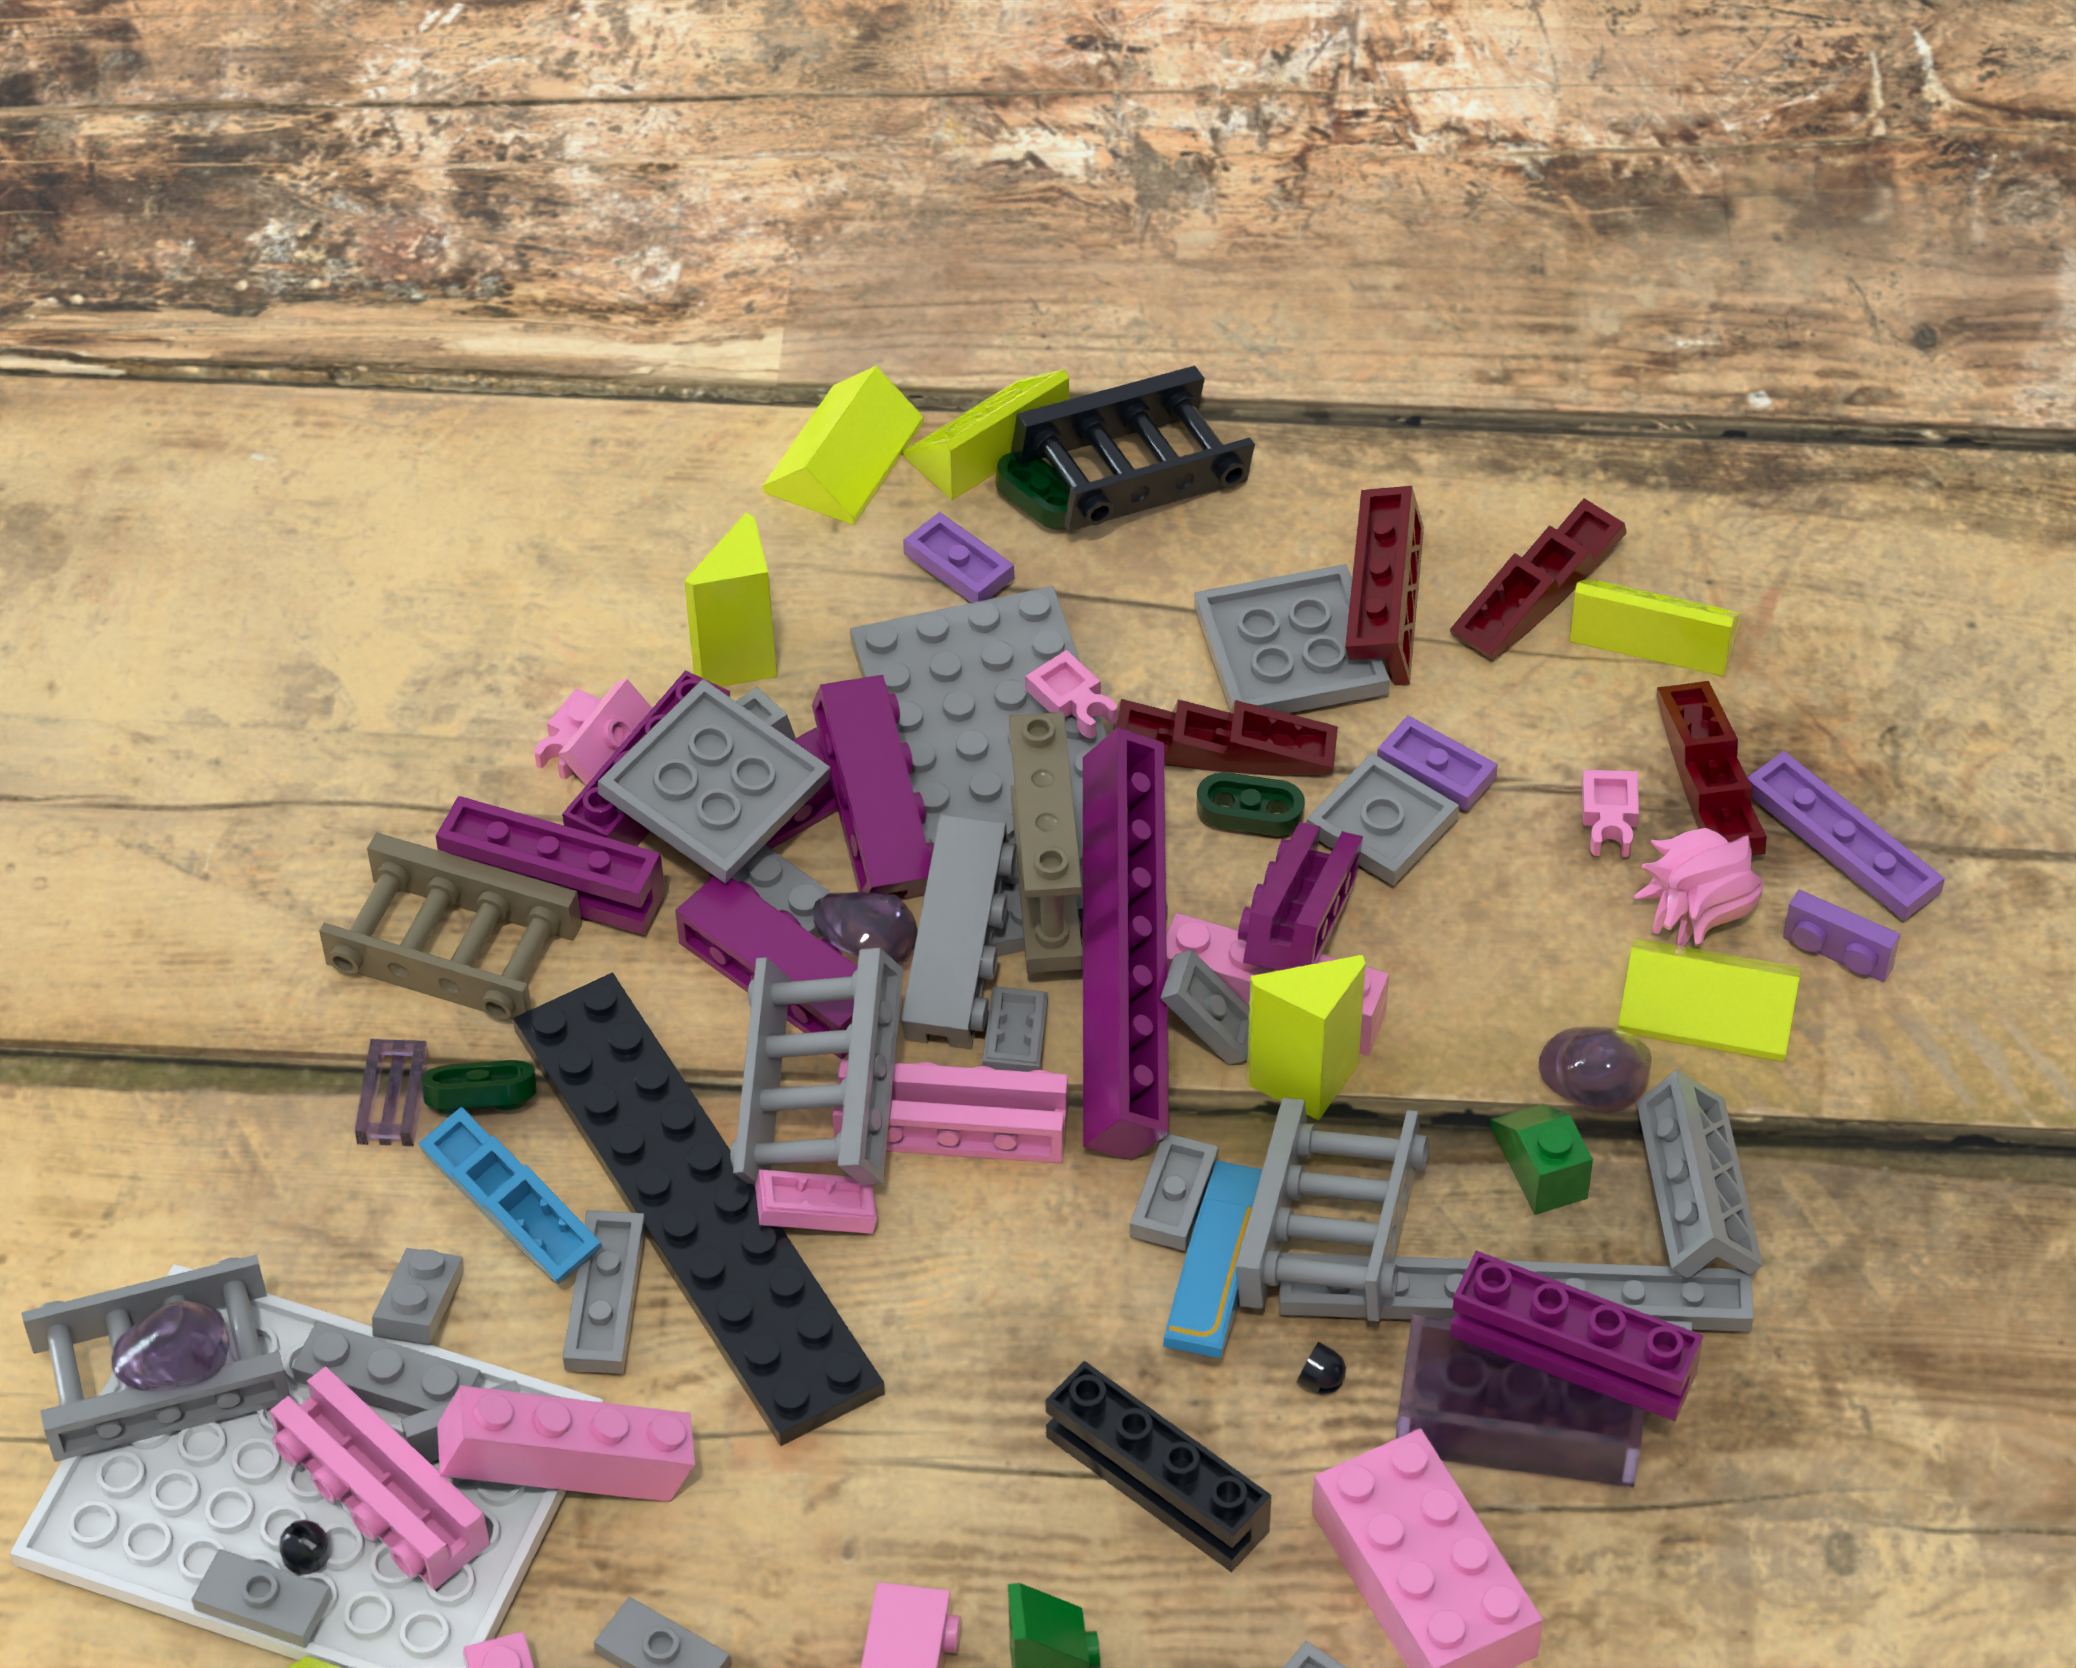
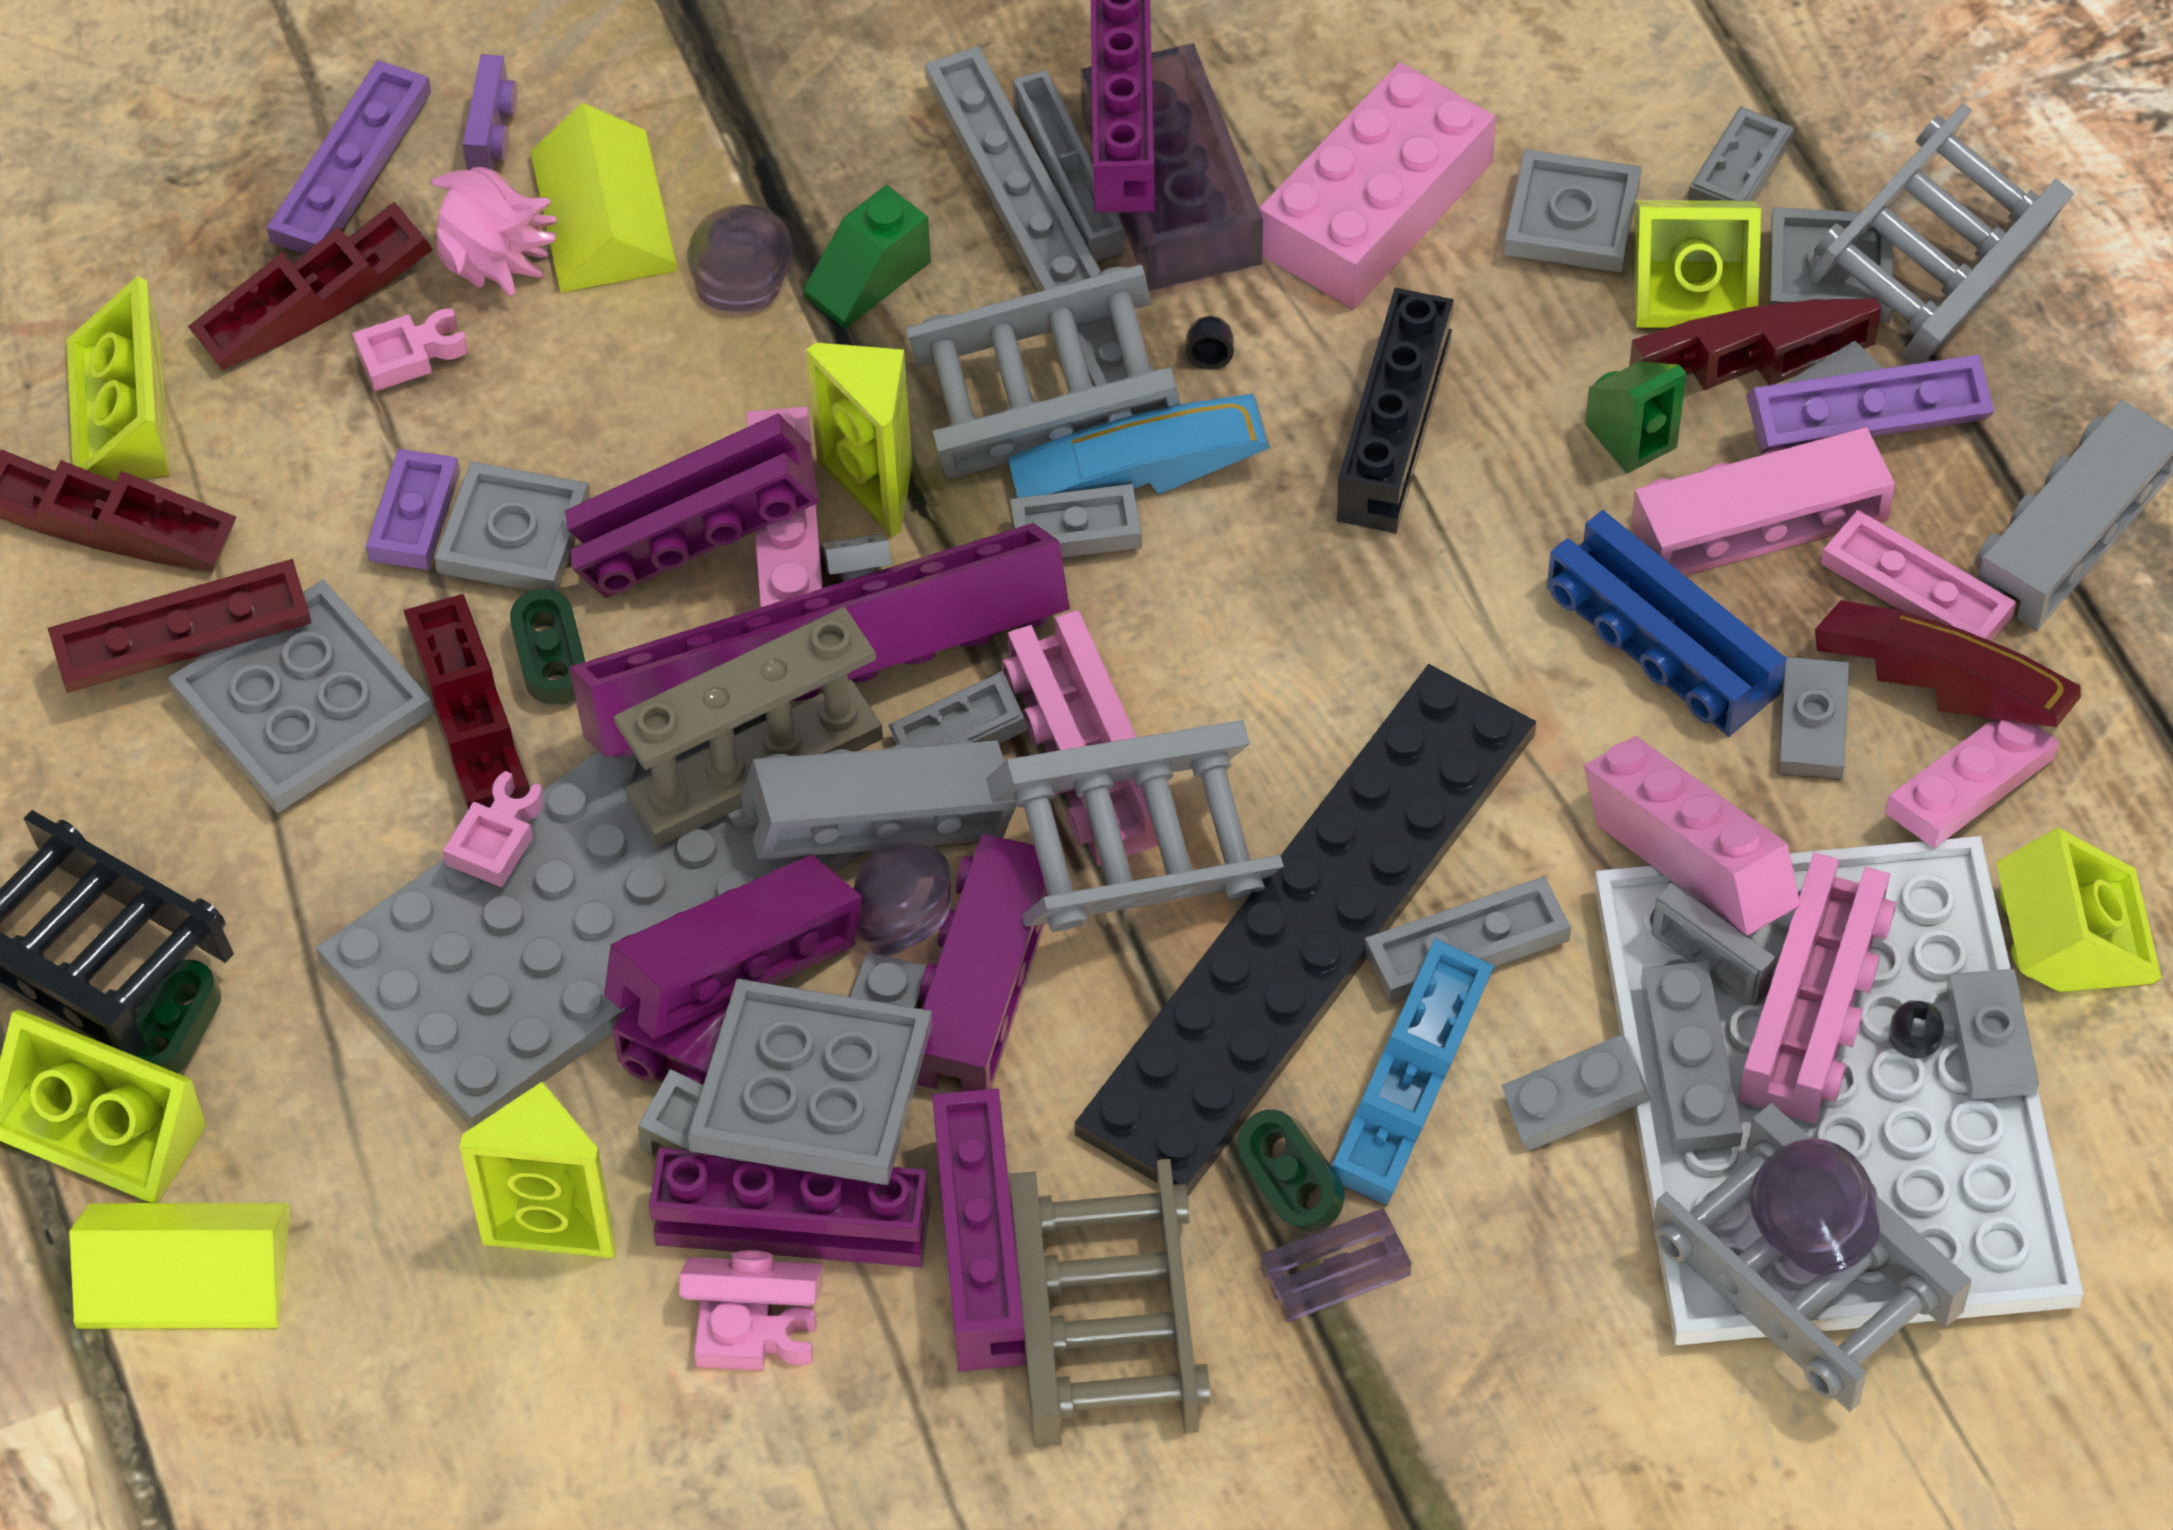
camera: 115 degrees left, 5 degrees up
(813, 1571) = (1666, 624): none -> blue brick
(814, 1202) = (1268, 805): bright pink plate -> none
(958, 558) = (315, 1057): medium lavender plate -> none
(1697, 1177) = (847, 129): light grey fence -> none

